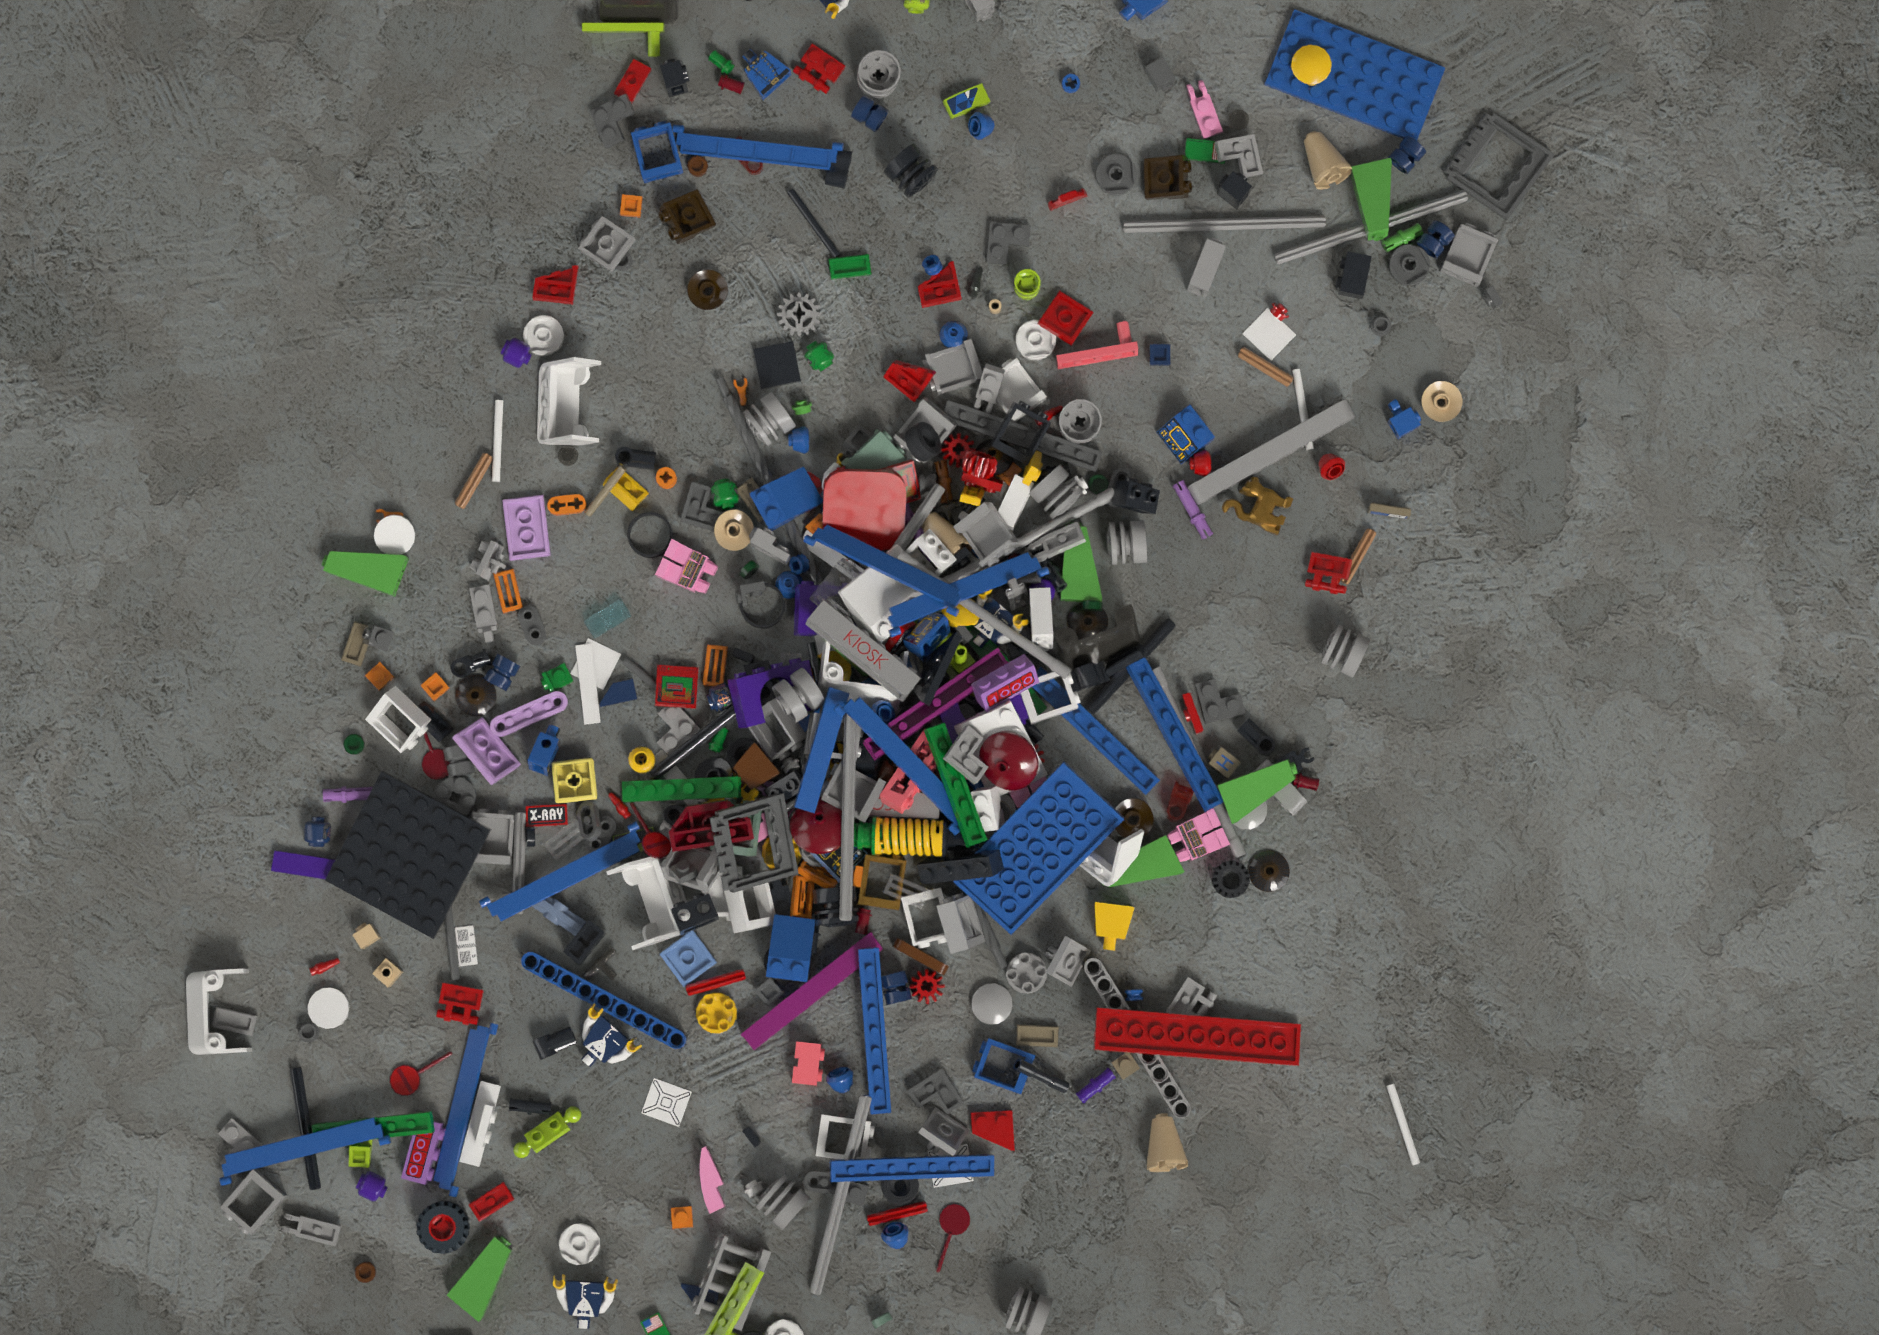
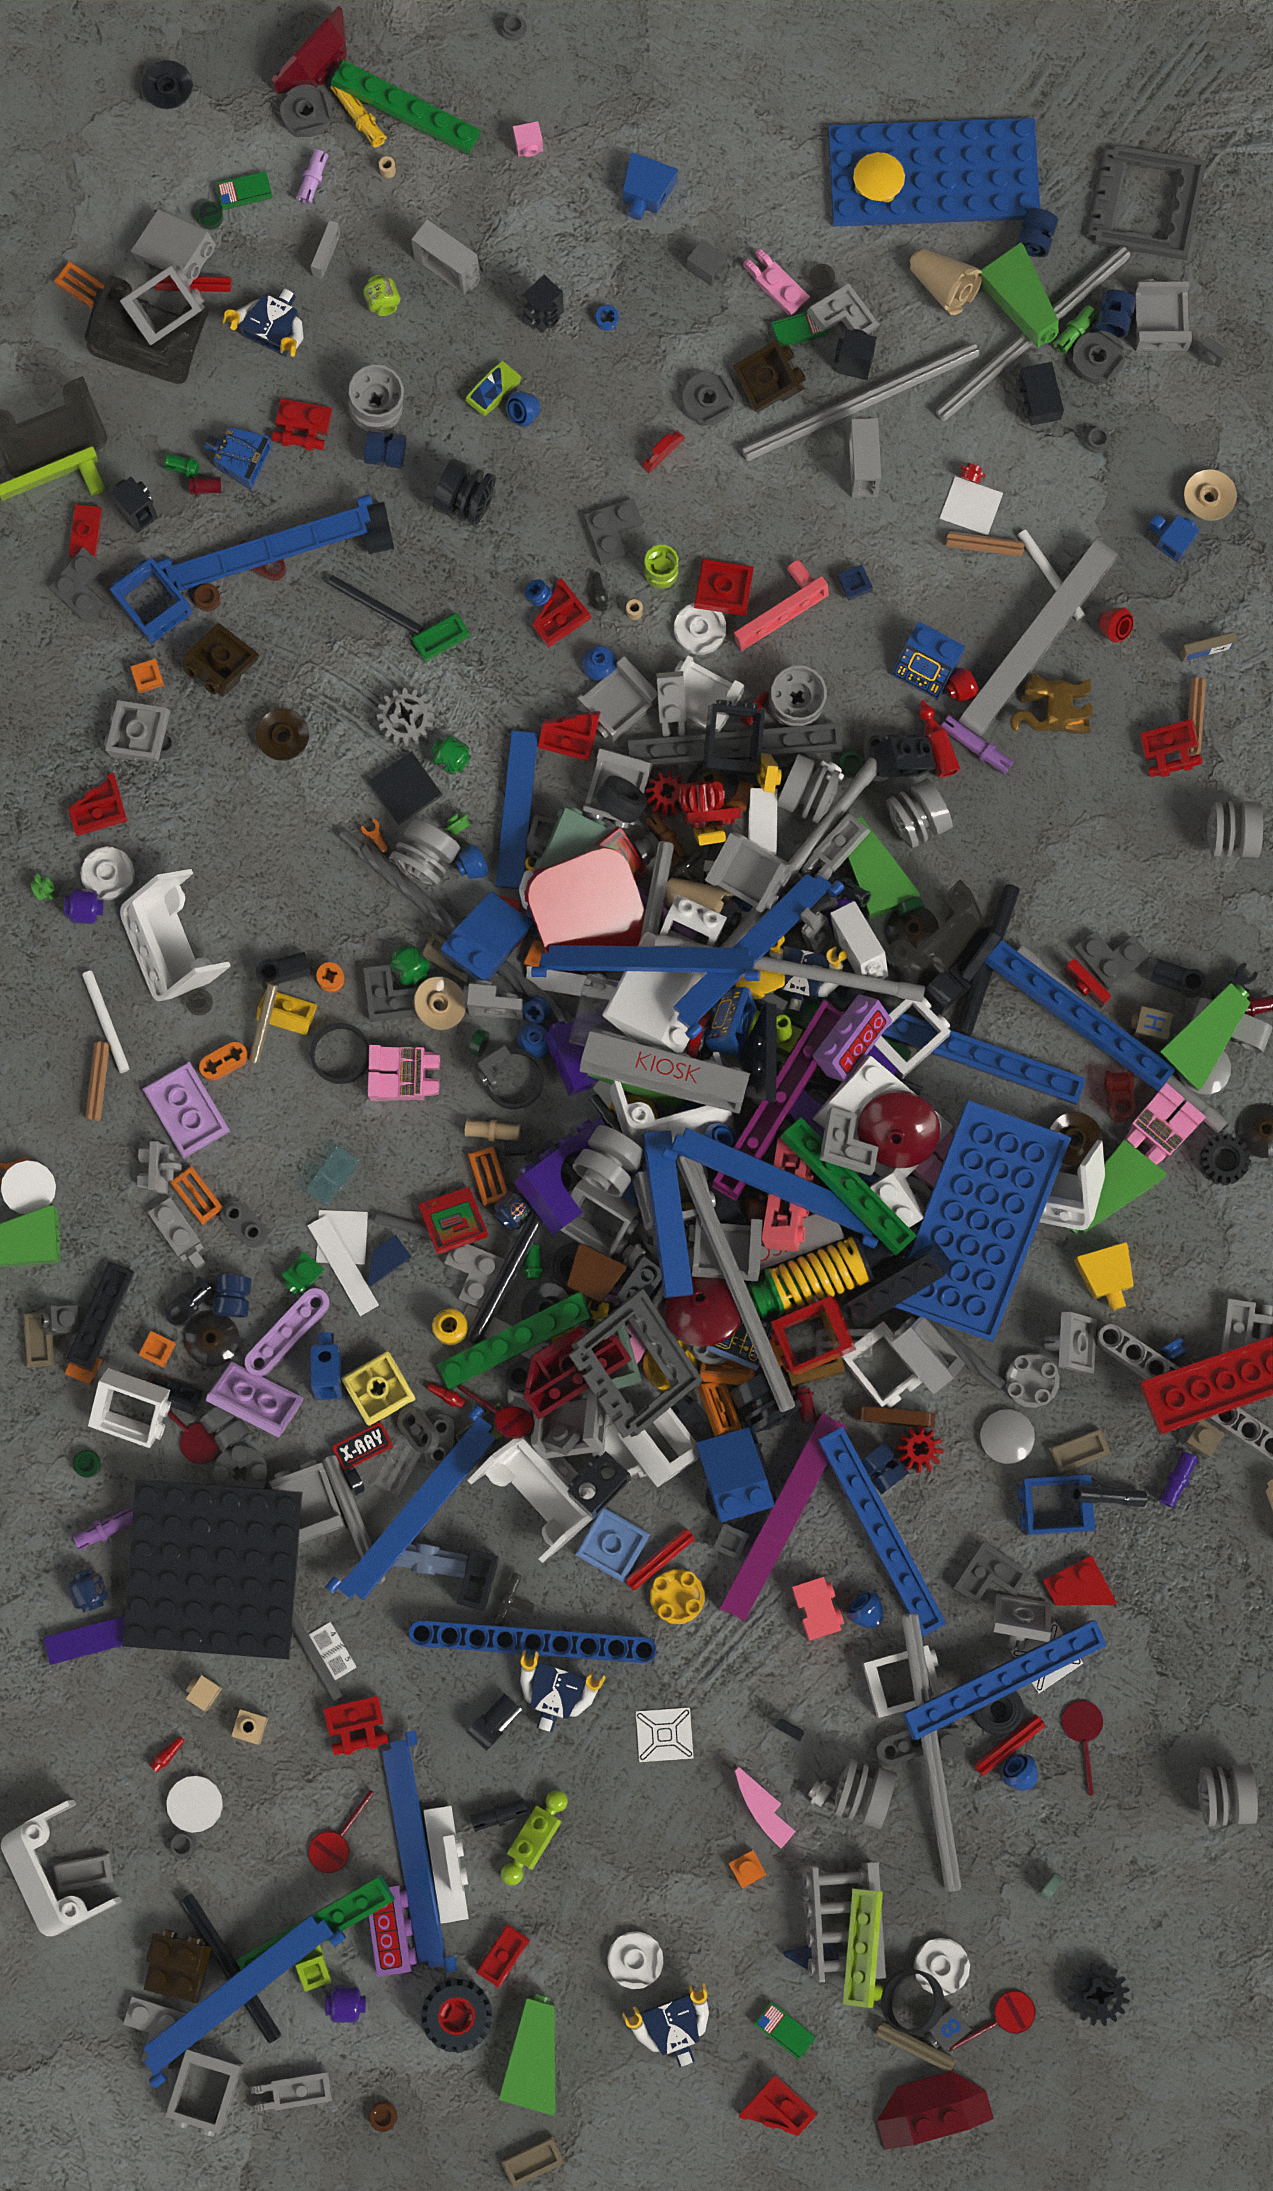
camera: 25 degrees left, 5 degrees down
(270, 1111) = (177, 1965): none -> dark brown plate
(405, 646) = (100, 1316): none -> black tile
(493, 326) = (42, 887): none -> bright green plate
(731, 635) = (492, 1130): none -> tan pin
(849, 414) = (517, 809): none -> blue tile
(906, 884) = (838, 1323): none -> red window
(1027, 56) = (542, 304): none -> black brick
(1166, 499) = (941, 746): none -> red wheel

